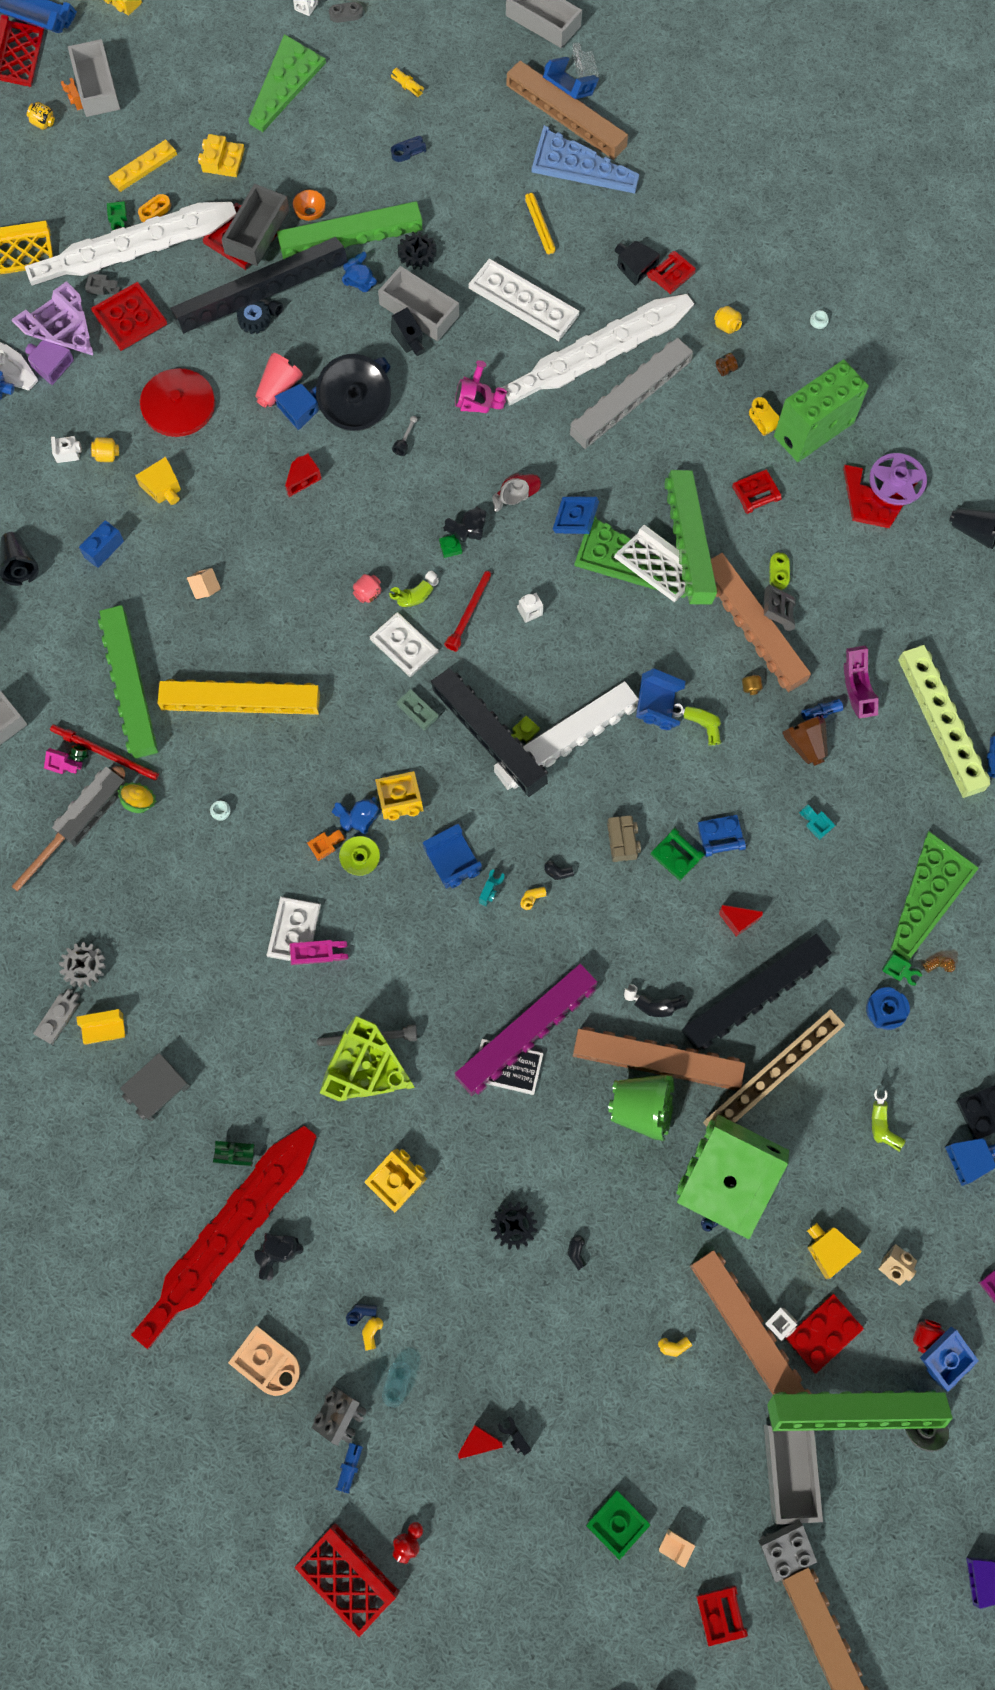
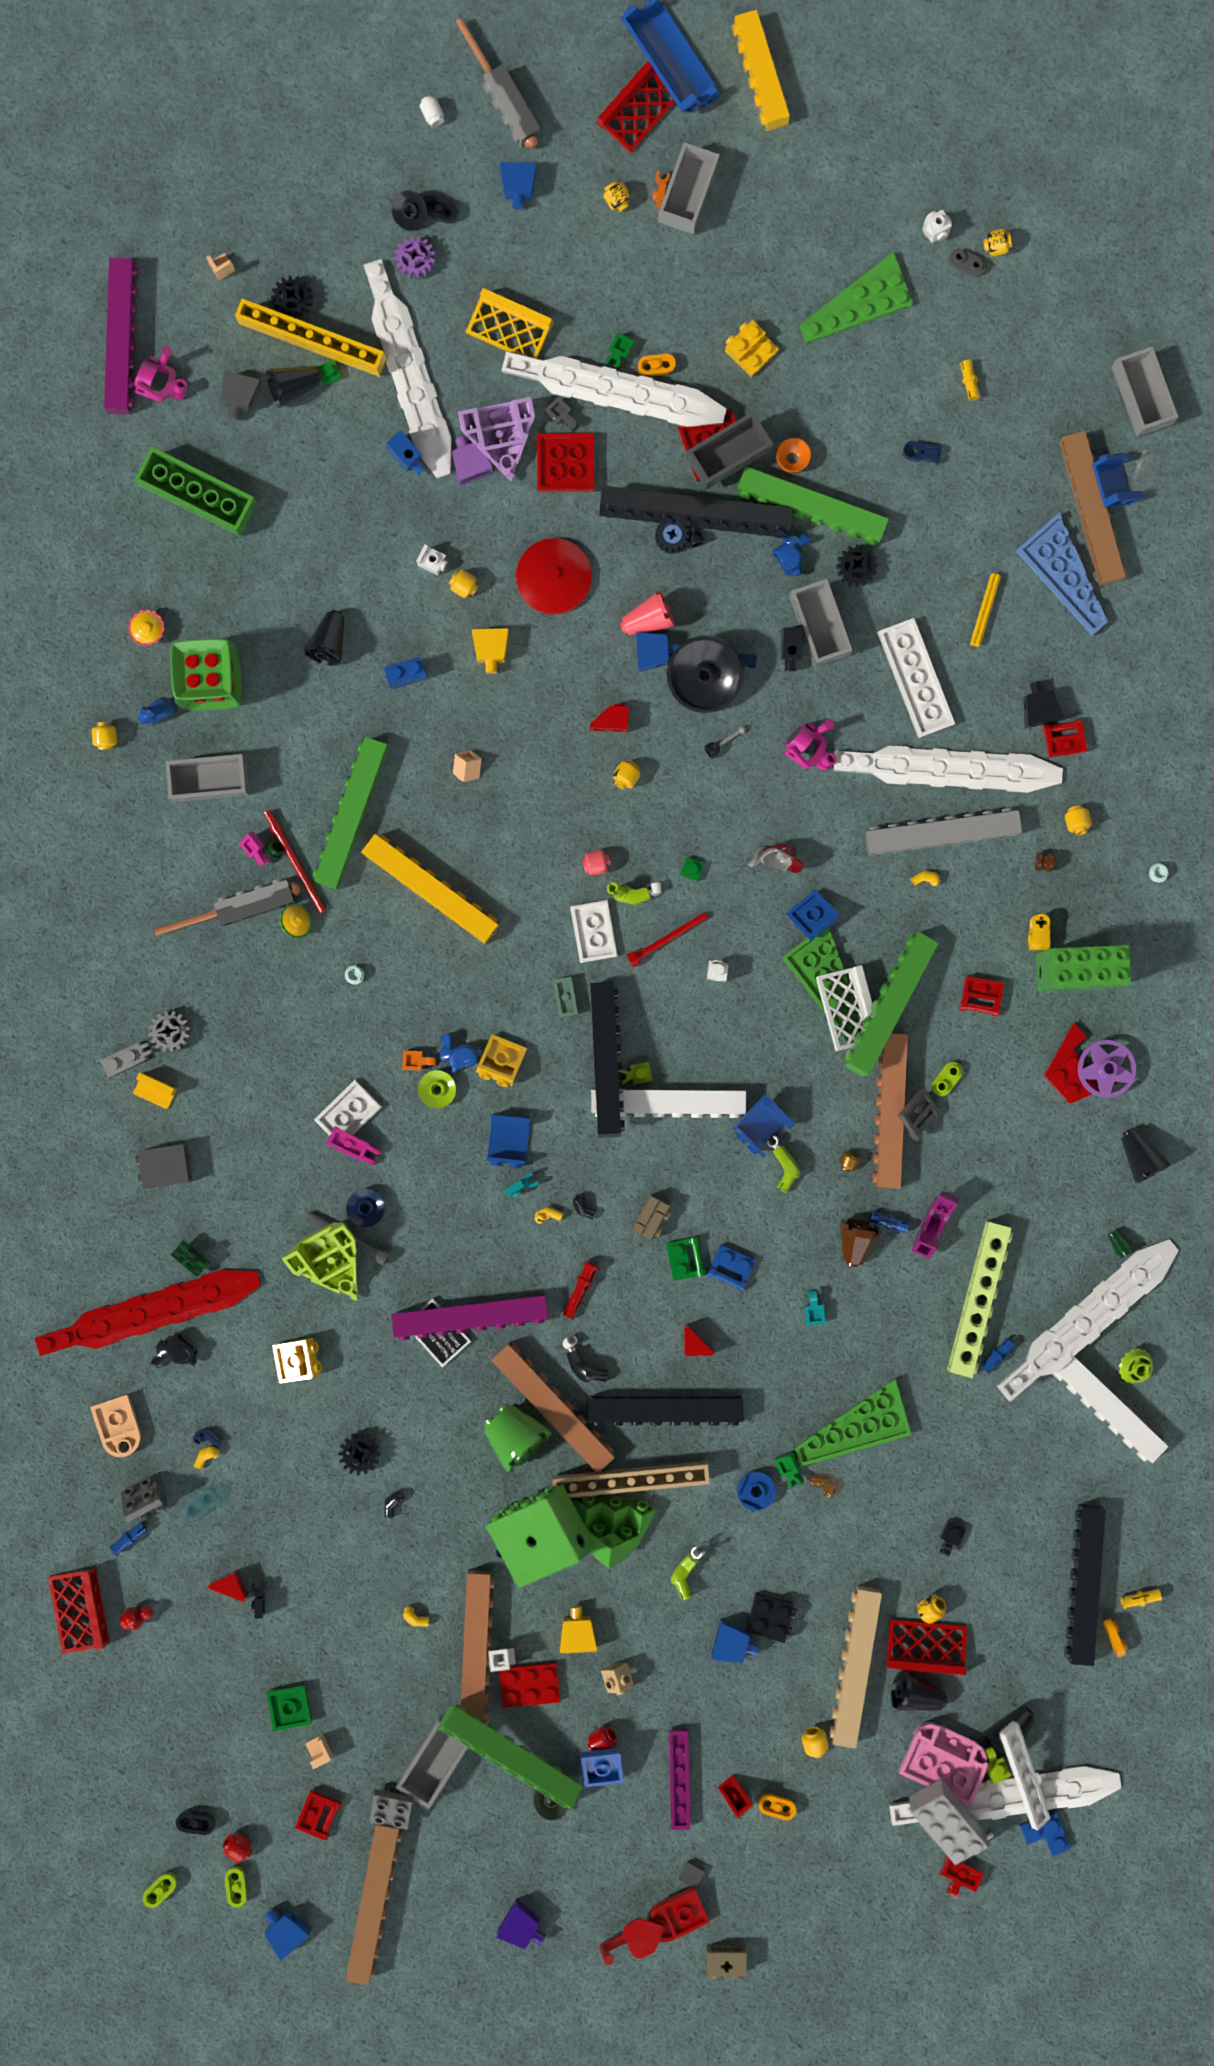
camera: 35 degrees right, 15 degrees up
(142, 165) = (675, 310): yellow plate -> none
(343, 506) = (626, 774): none -> yellow head
(362, 989) = (355, 1208): none -> dark blue dish
(470, 527) = (719, 865): black animal -> none
(605, 933) = (583, 1282): none -> red pin
(642, 433) = (928, 876): none -> yellow arm
(792, 1123) = (614, 1525): none -> bright green brick

